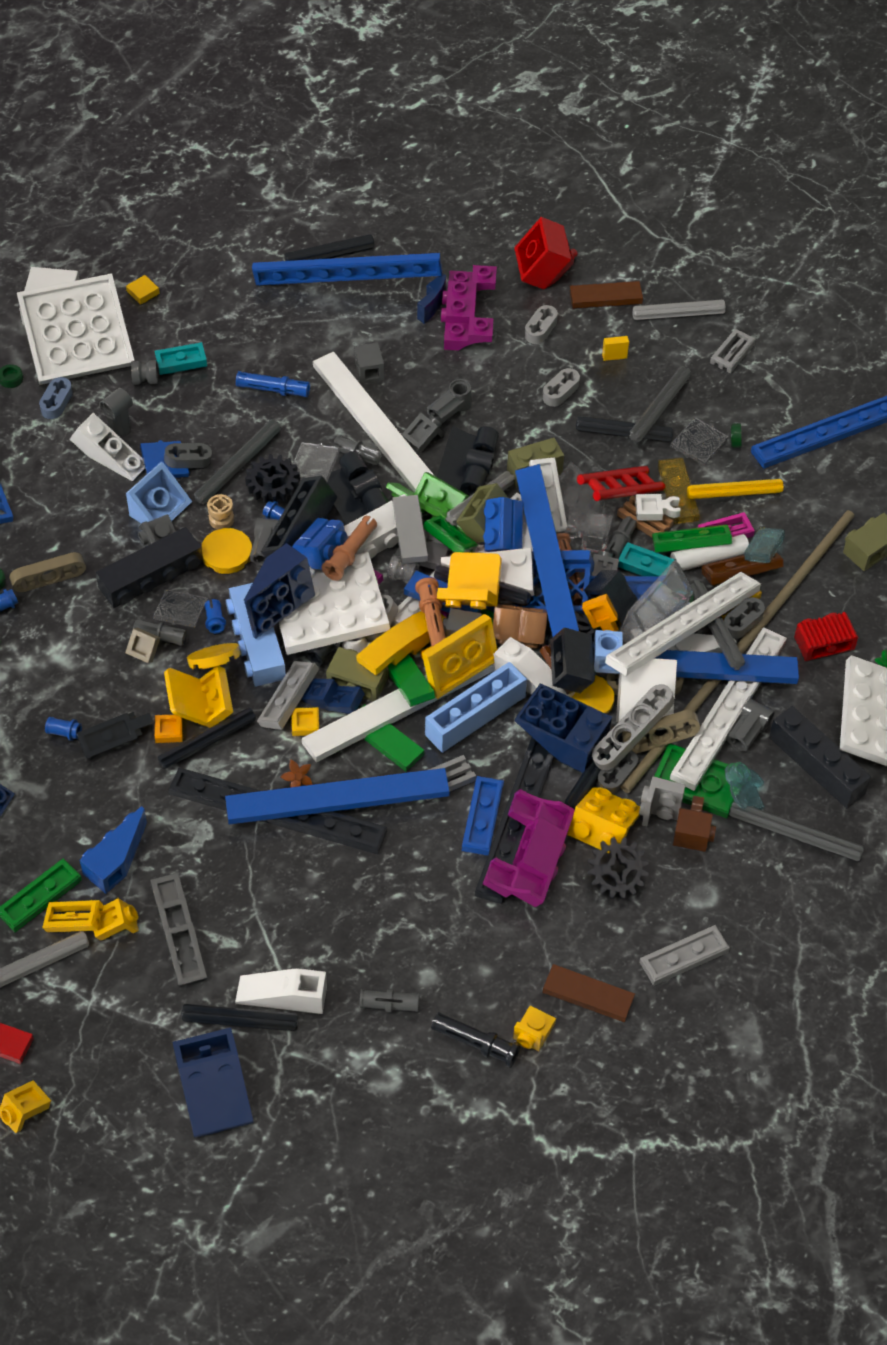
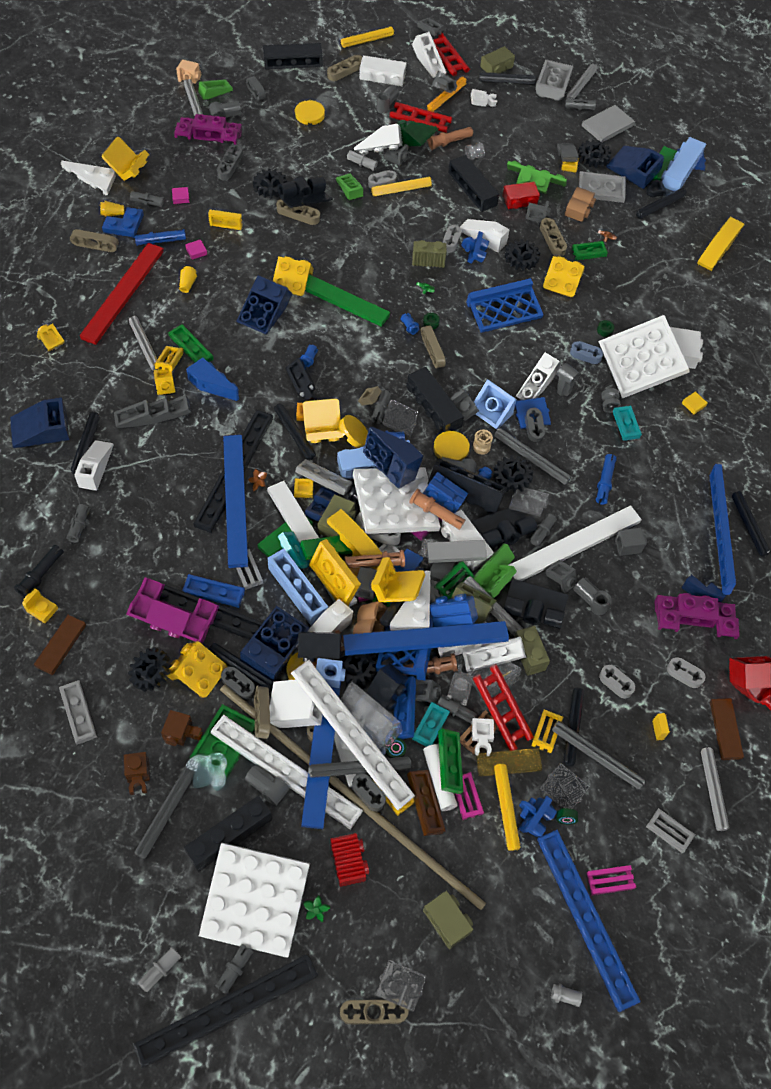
camera: 90 degrees right, 5 degrees up
(407, 722) = (291, 544): none -> teal plate
(601, 613) = (366, 673): light orange plate -> none
(634, 454) = (543, 744): none -> yellow tile
(637, 730) = (264, 685): light grey beam -> none
(661, 799) = (198, 702): light grey bracket -> none
(739, 462) = (533, 812): none -> blue hips
(757, 865) = (137, 770): none -> reddish brown brick
(764, 545) = (444, 821): clear light blue tile -> none
(785, 390) = (630, 886): none -> dark pink tile

